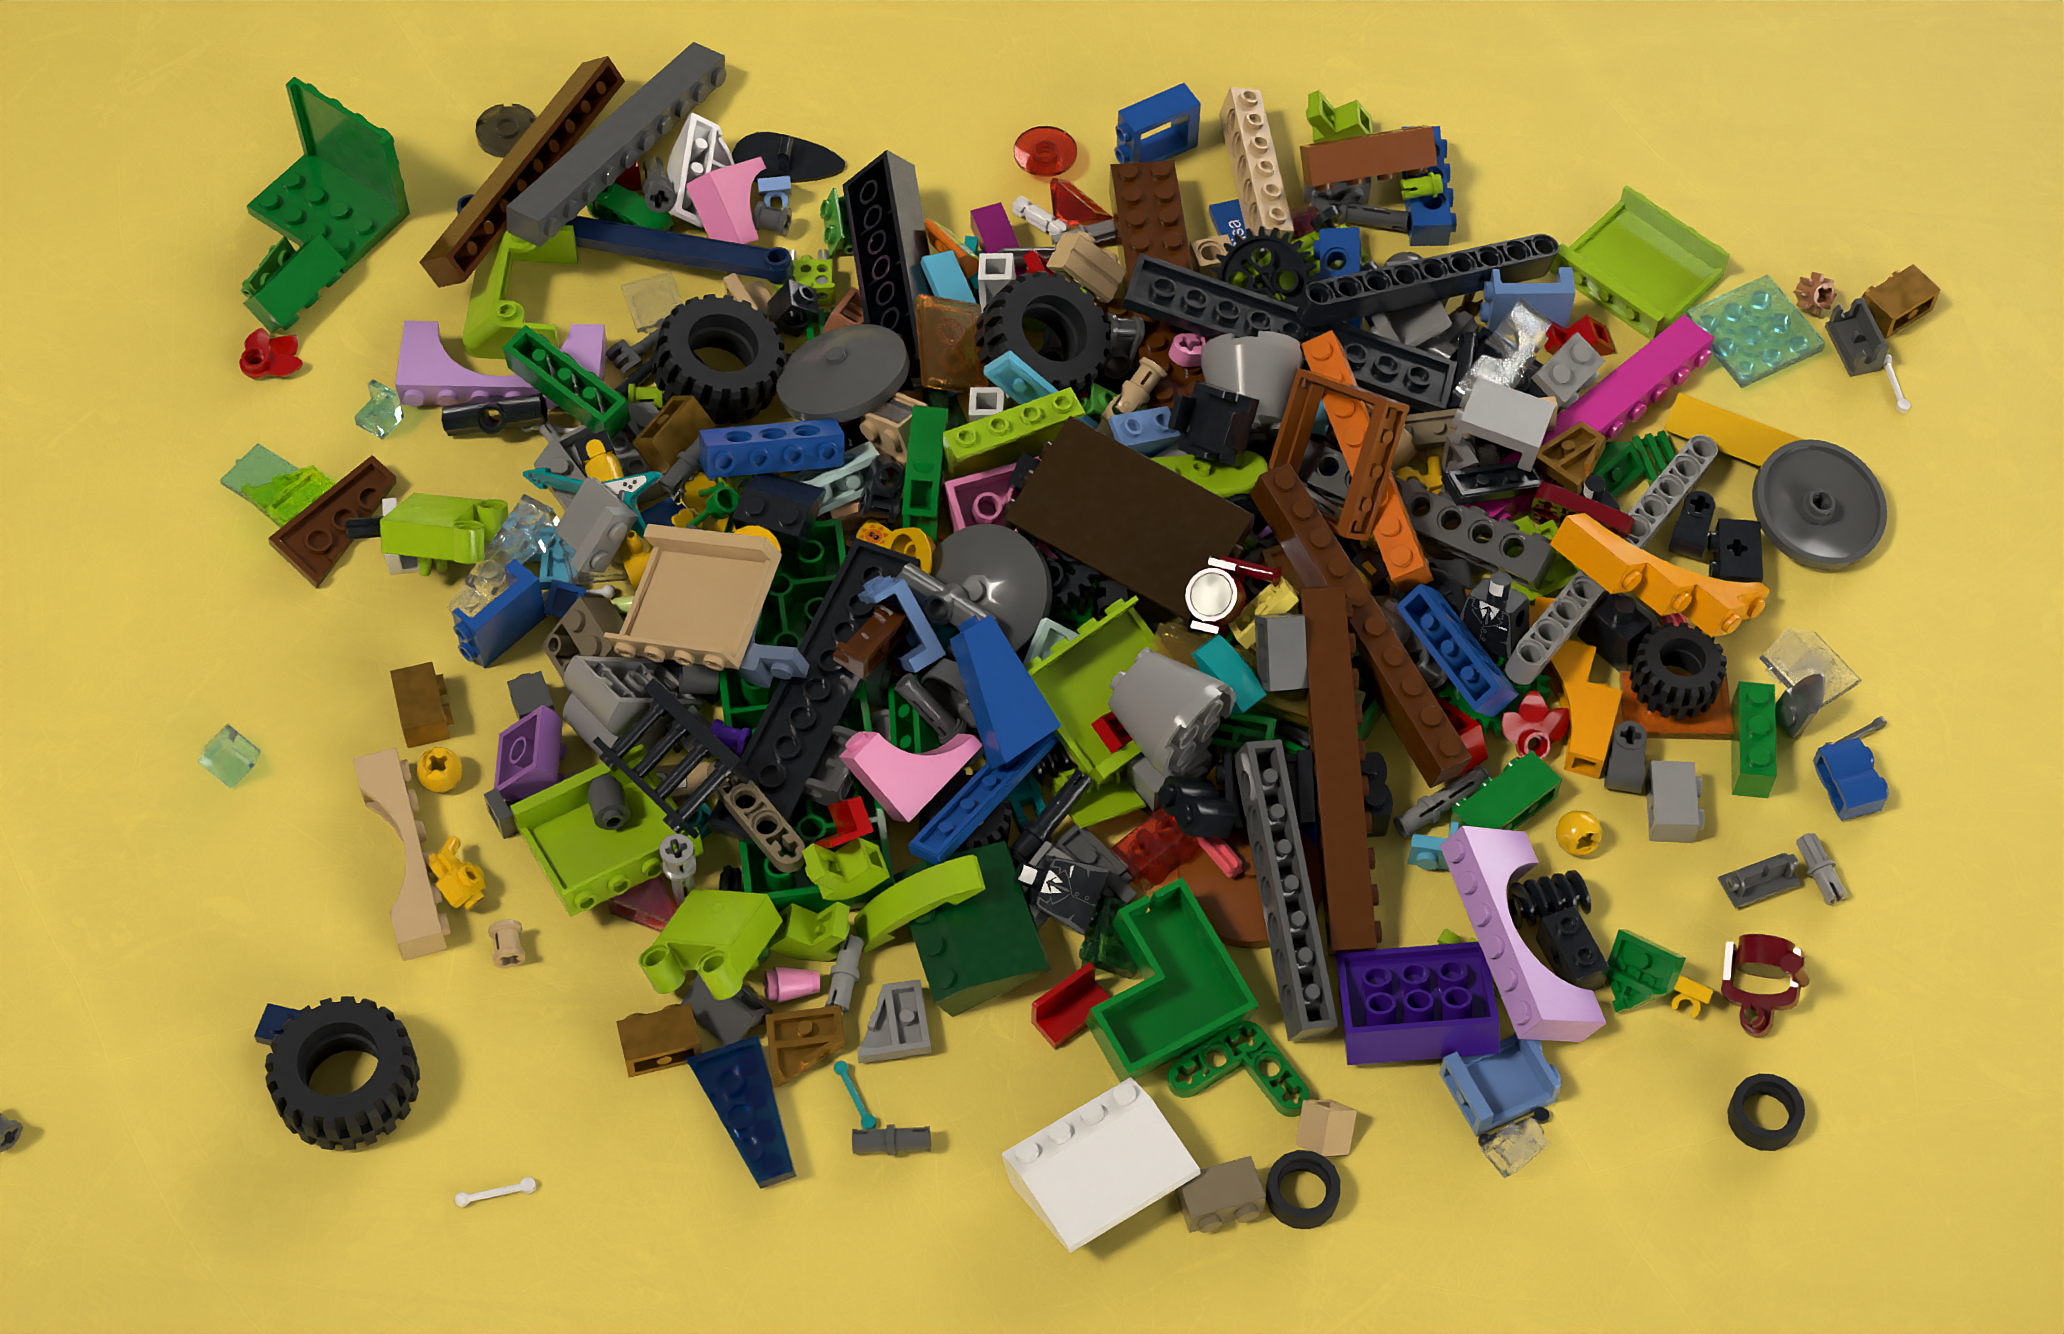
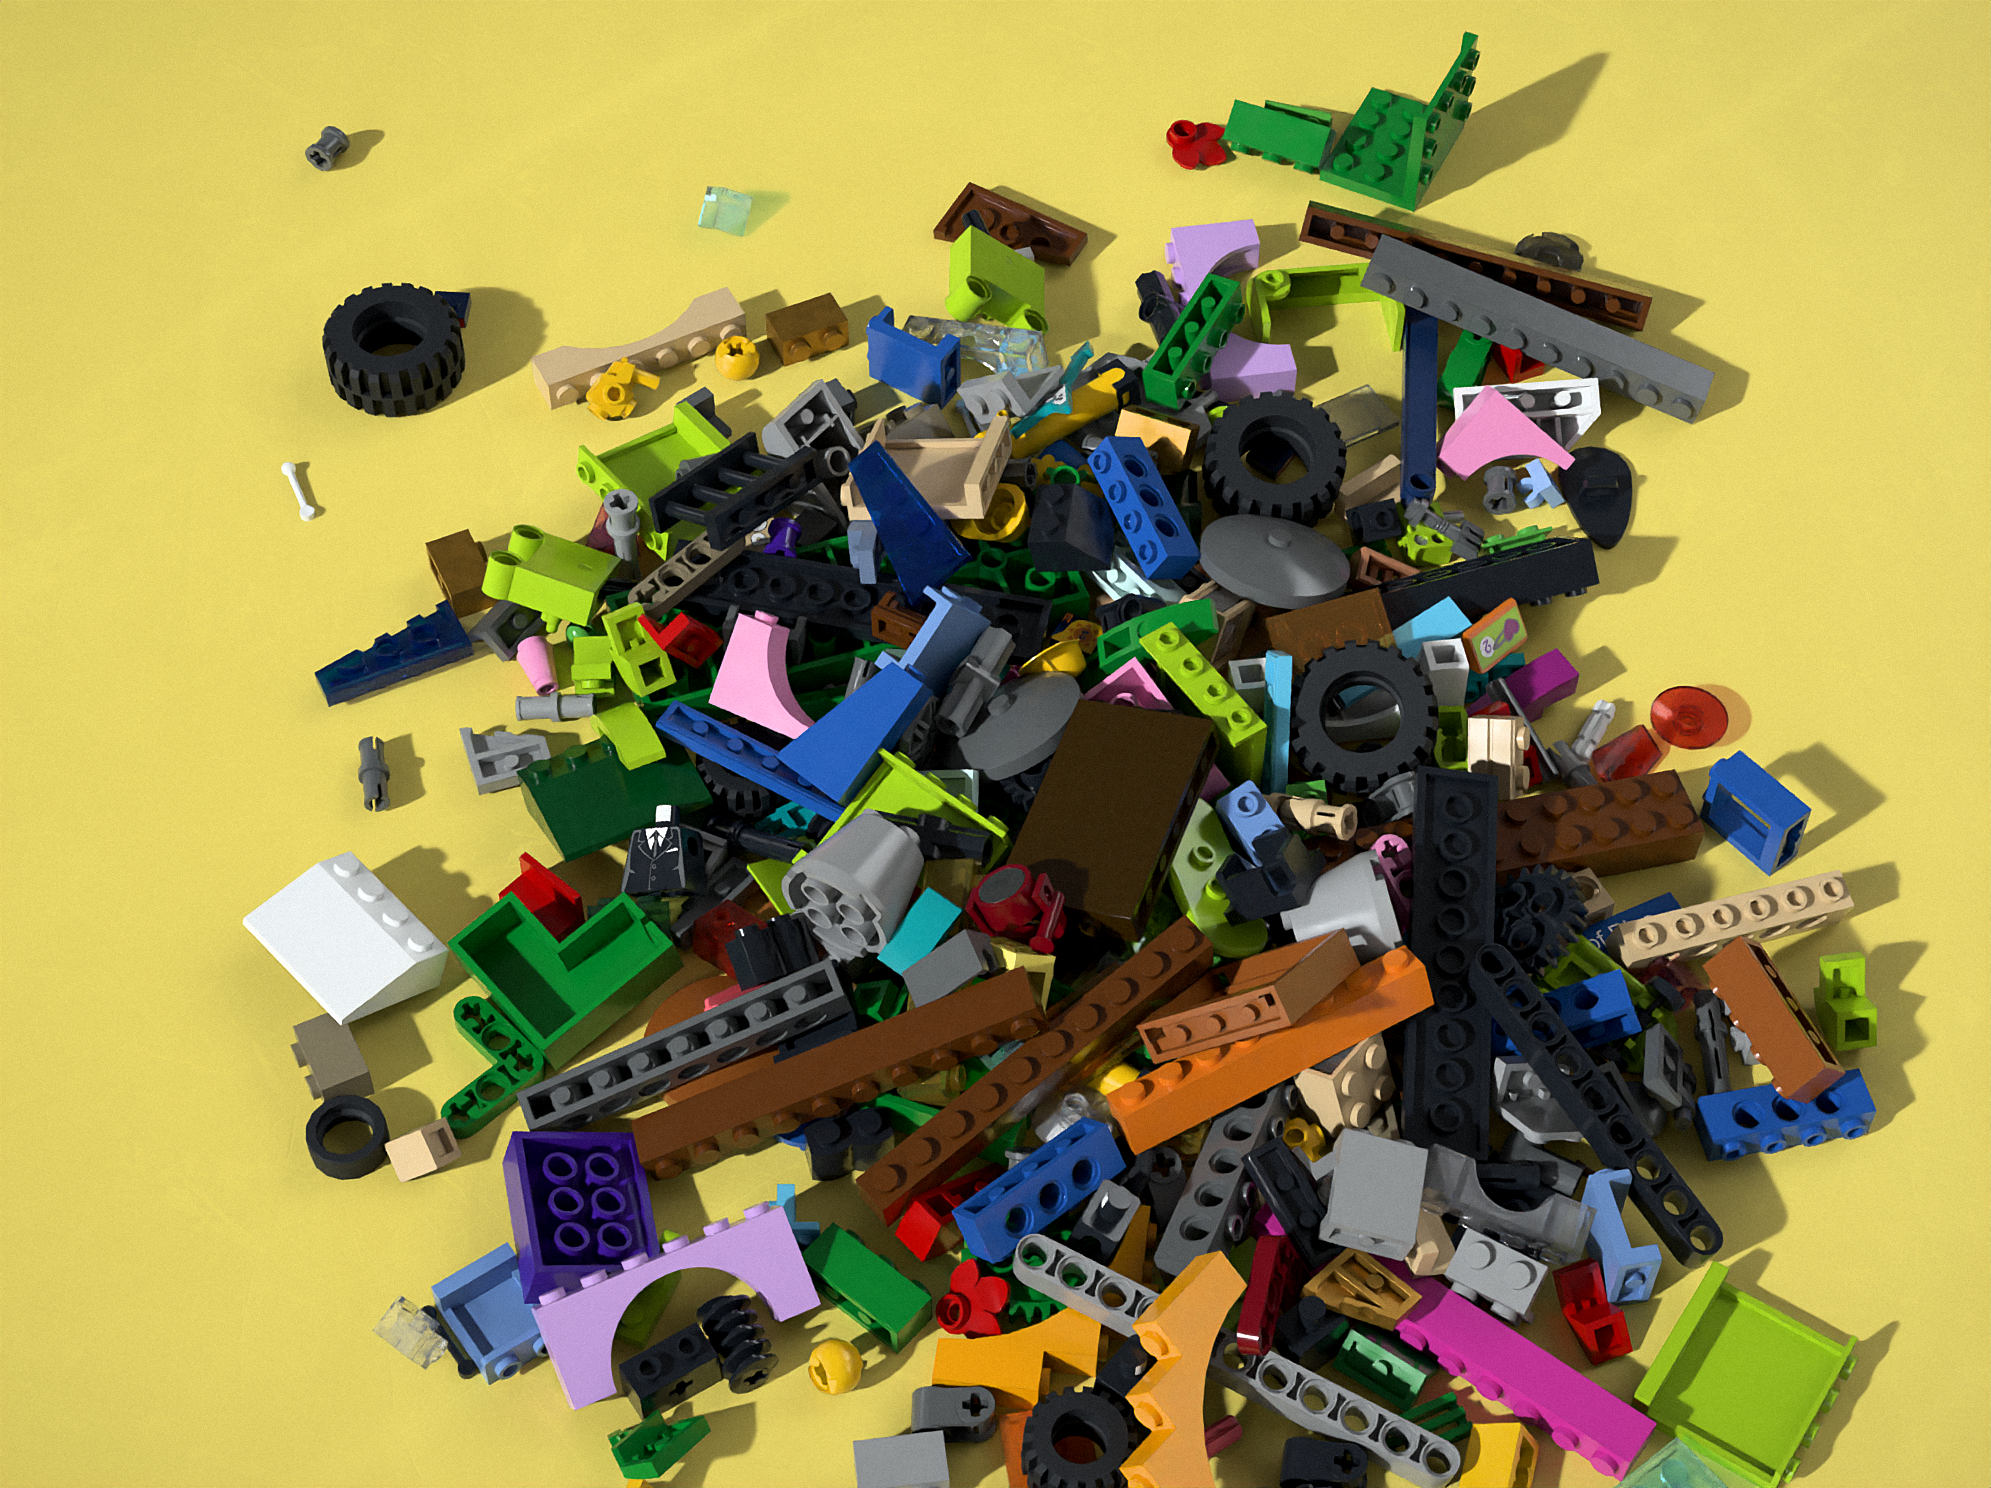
camera: 80 degrees right, 5 degrees down
(256, 468) = (1051, 172): clear light blue piece -> none
(288, 493) = (1030, 187): clear neon green wing -> none
(381, 412) = (1146, 236): clear light blue panel -> none
(507, 943) = (553, 444): tan bush -> none
(530, 755) = (749, 415): medium lavender brick -> none
(561, 598) = (954, 410): blue plate -> none
(657, 186) = (1488, 371): dark grey pin -> none
(771, 615) = (910, 529): none -> clear blue wing
(802, 1040) = (476, 685): pearl gold wing -> none
(804, 267) = (1466, 538): none -> dark grey hinge
(867, 1120) = (398, 757): teal hinge -> none
(1116, 656) = (946, 841): none -> black piece
(1268, 735) = (886, 988): green tile -> none
(1399, 240) = (1668, 1076): none -> dark grey plate
(1411, 821) = (826, 1195): light grey pin -> none
(1422, 186) = (1760, 1099): lime pin -> none

